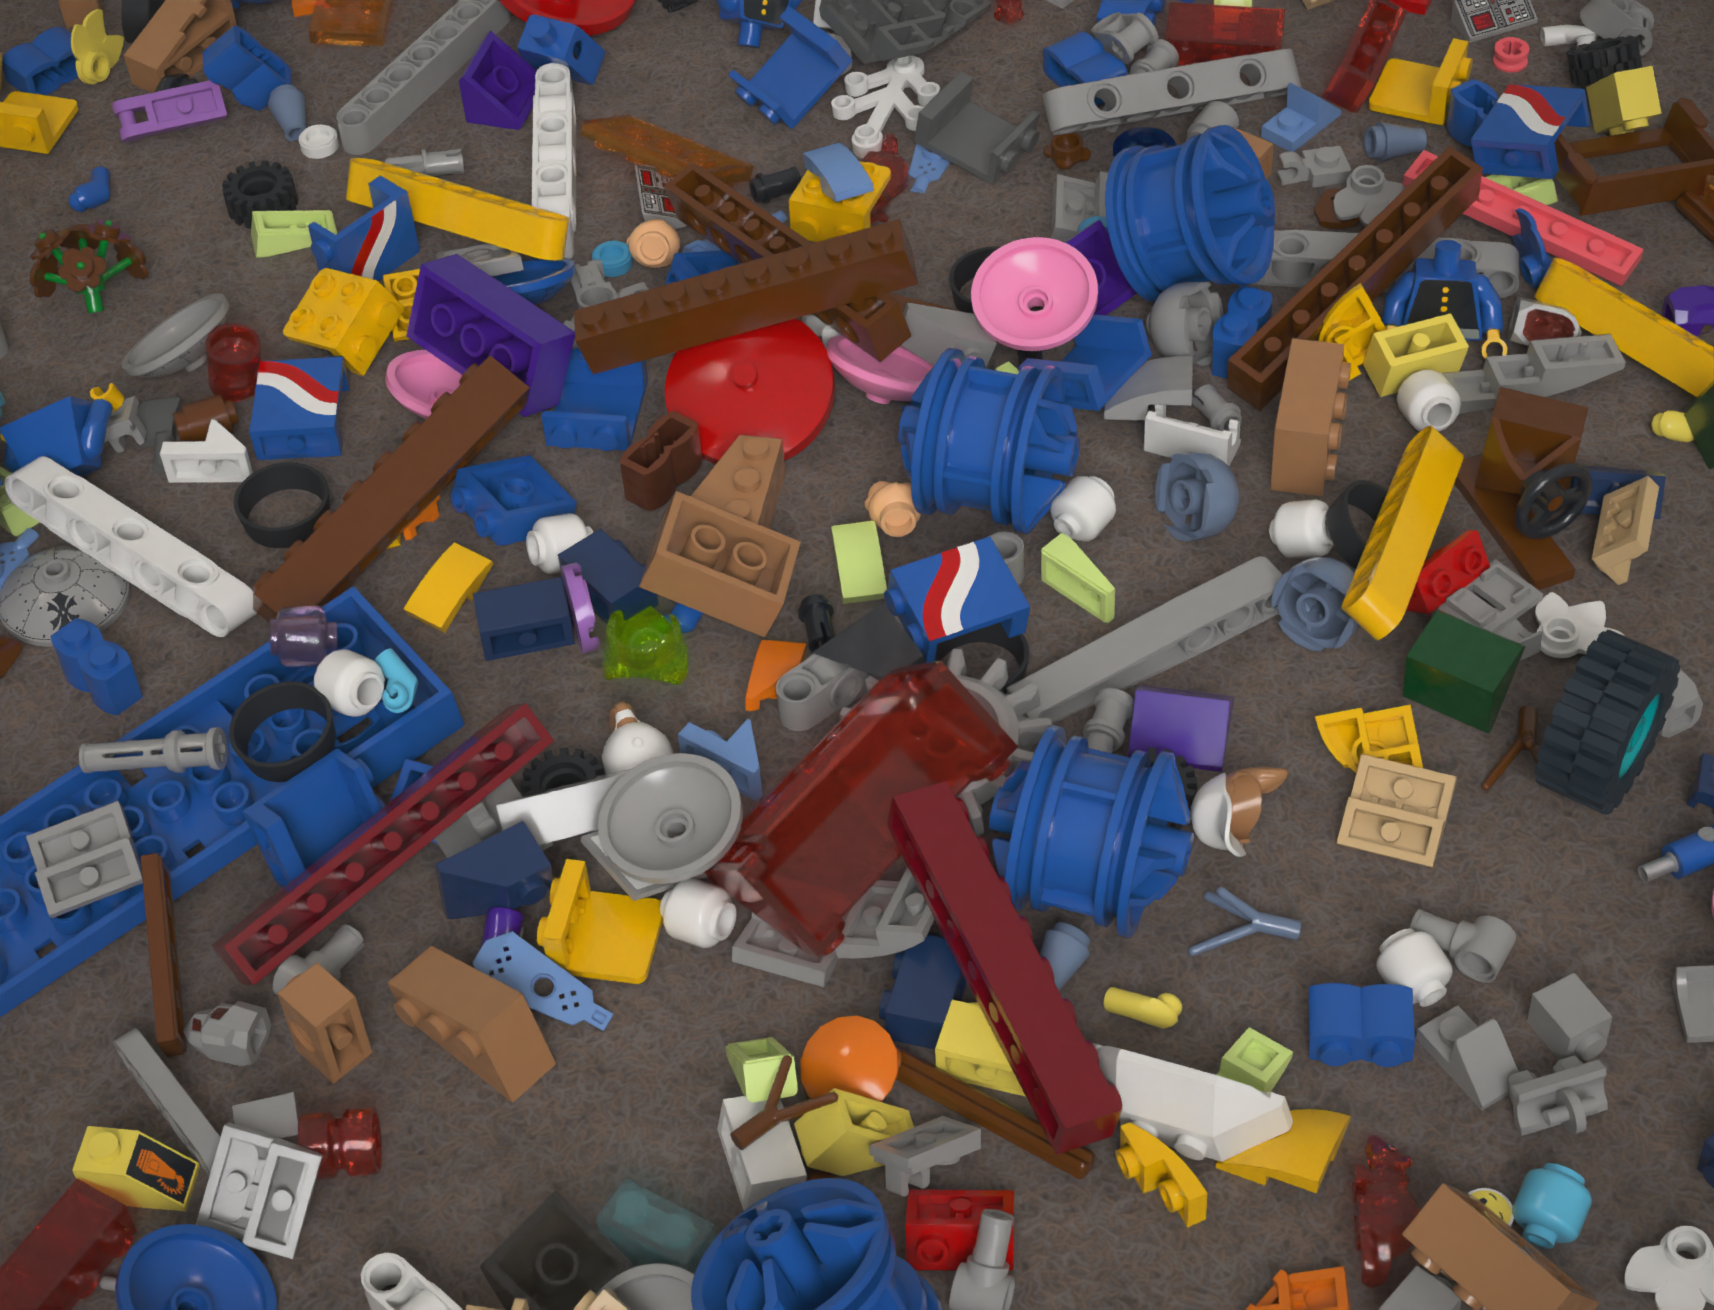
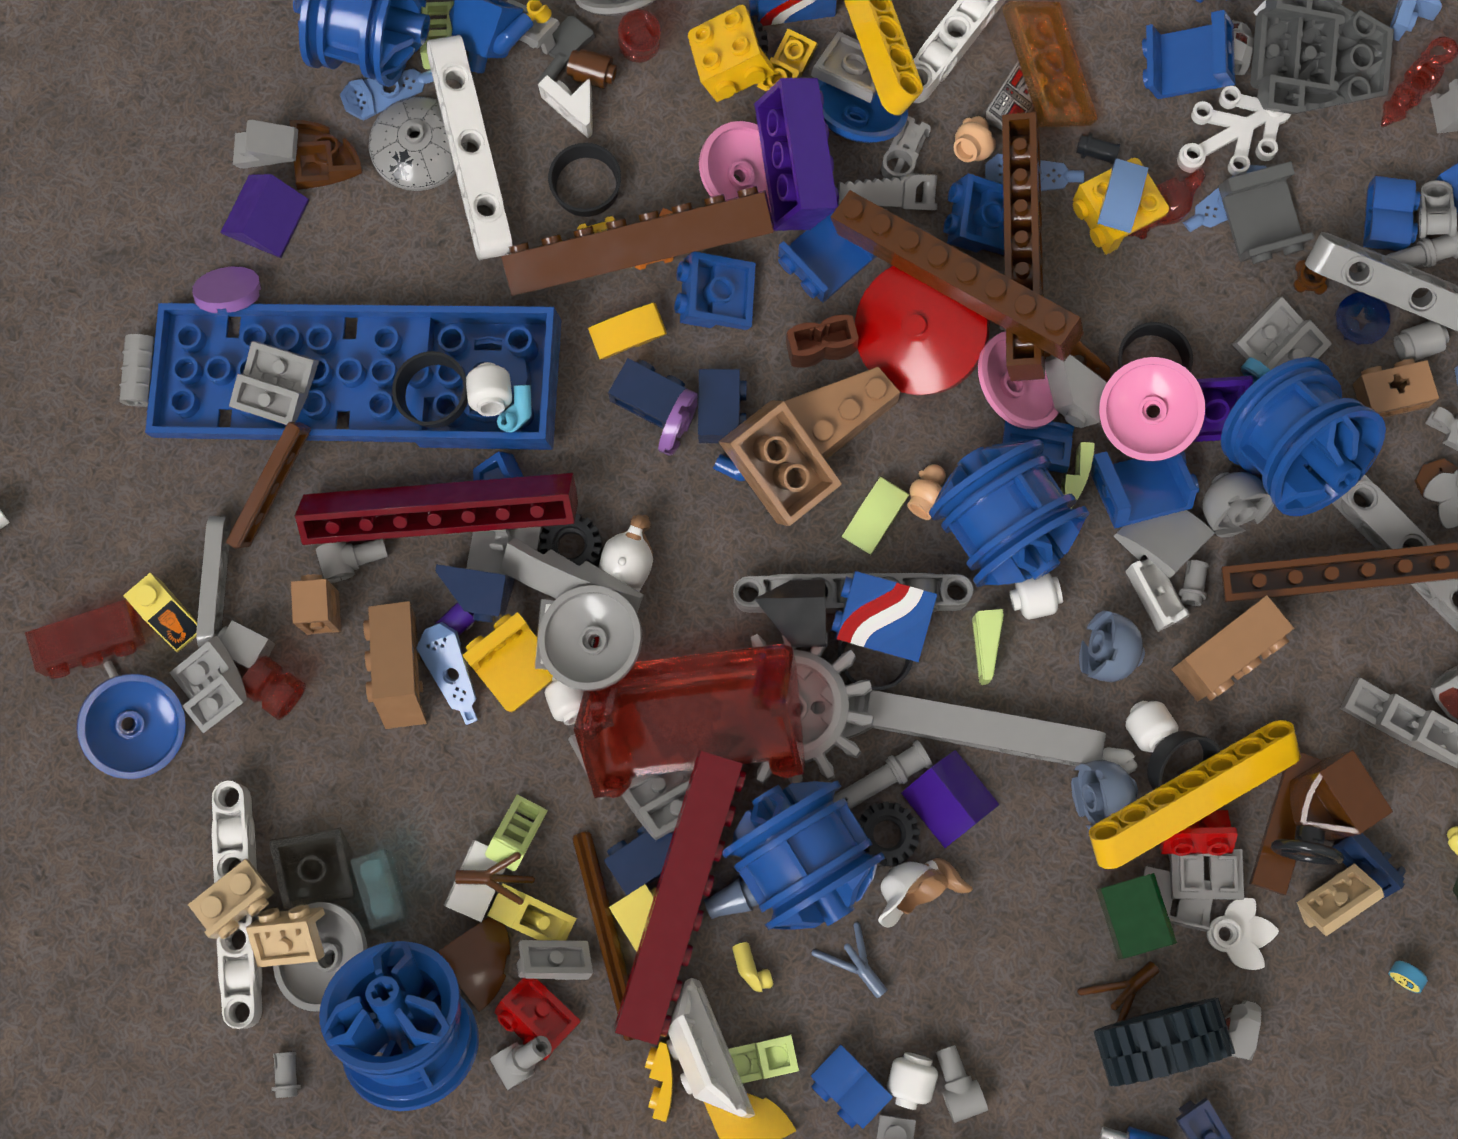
camera: 40 degrees right, 30 degrees up
(96, 666) = (388, 226): blue brick -> none
(176, 755) = (367, 349): light grey pin -> none
(230, 1032) = (274, 557): light grey rock -> none
(298, 408) = (652, 103): panel -> none
(302, 636) = (490, 329): clear purple head -> none
(312, 813) = (412, 453): blue panel -> none
(551, 537) = (715, 351): white head -> none
(614, 257) = (944, 126): dark azure tile -> none
(645, 647) = (698, 479): clear neon green hair -> none
(736, 755) = (679, 609): medium blue slope -> none
(770, 664) = (758, 556): orange slope -> none
(817, 614) = (812, 541): black pin -> none
(851, 1057) = (564, 870): orange dish -> none
(1245, 315) = (1260, 539): blue brick -> none
(1352, 324) = (1320, 609): yellow brick -> none
(1379, 734) = (1044, 914): yellow brick -> none
(1397, 810) = (1009, 968): tan slope -> none
(1414, 347) = (1352, 654): light yellow brick -> none
(1428, 400) = (1327, 694): white head -> none
(1443, 288) = (1413, 627): blue torso -> none

